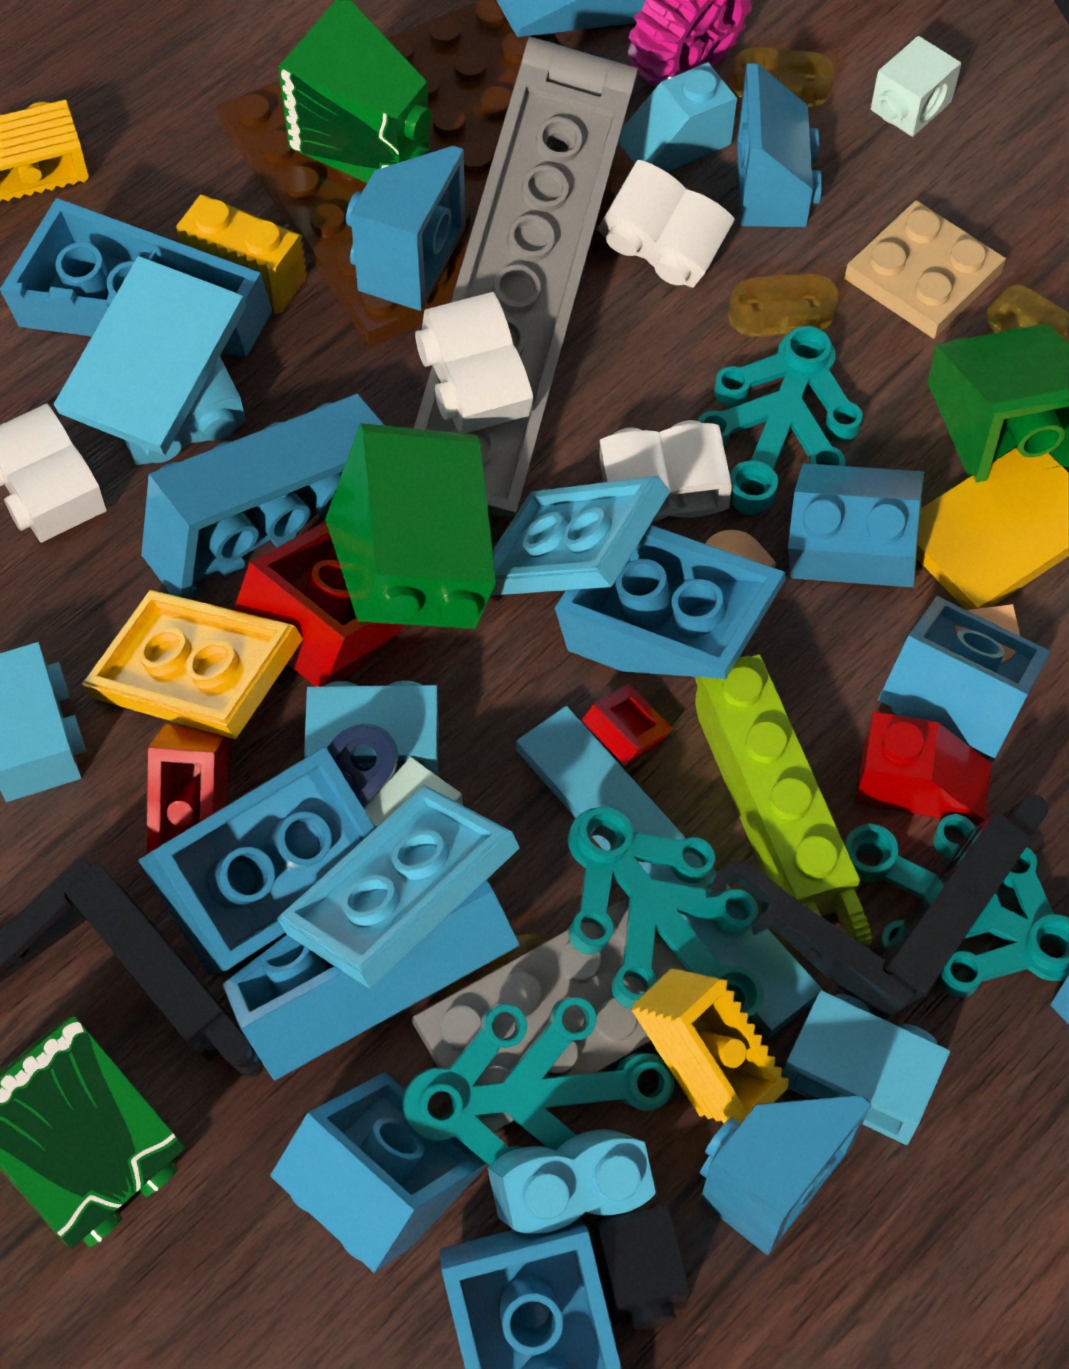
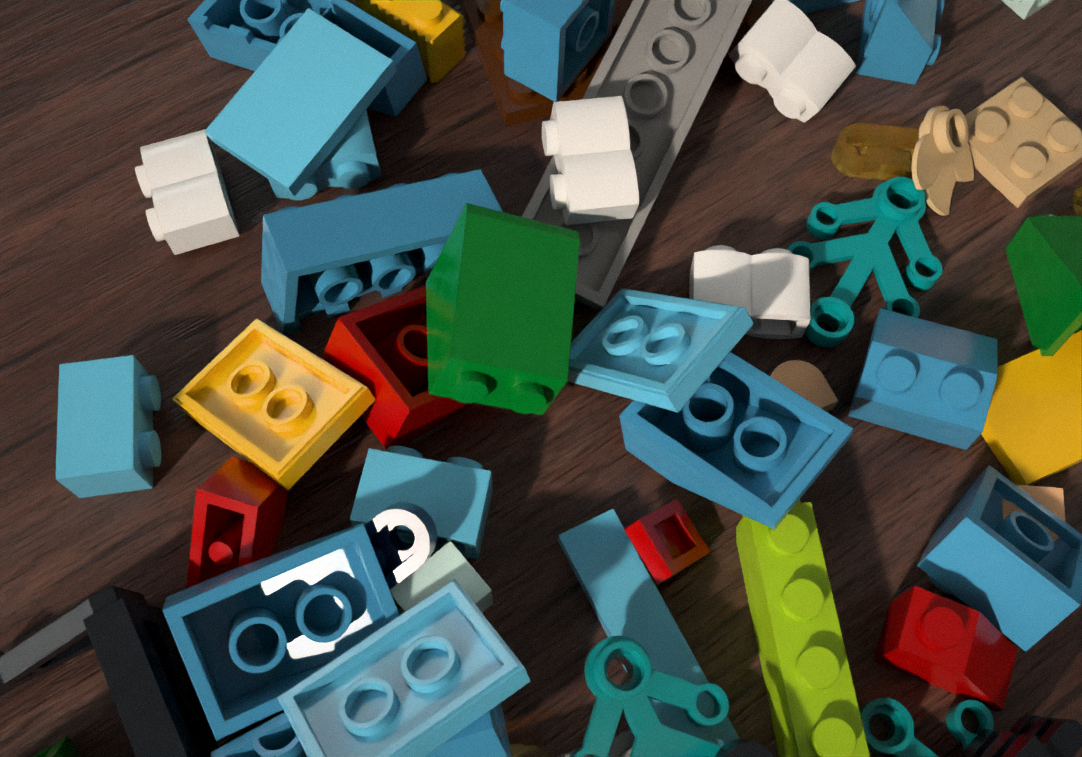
camera: 10 degrees right, 5 degrees up
(841, 299) = (941, 157): none -> tan plate

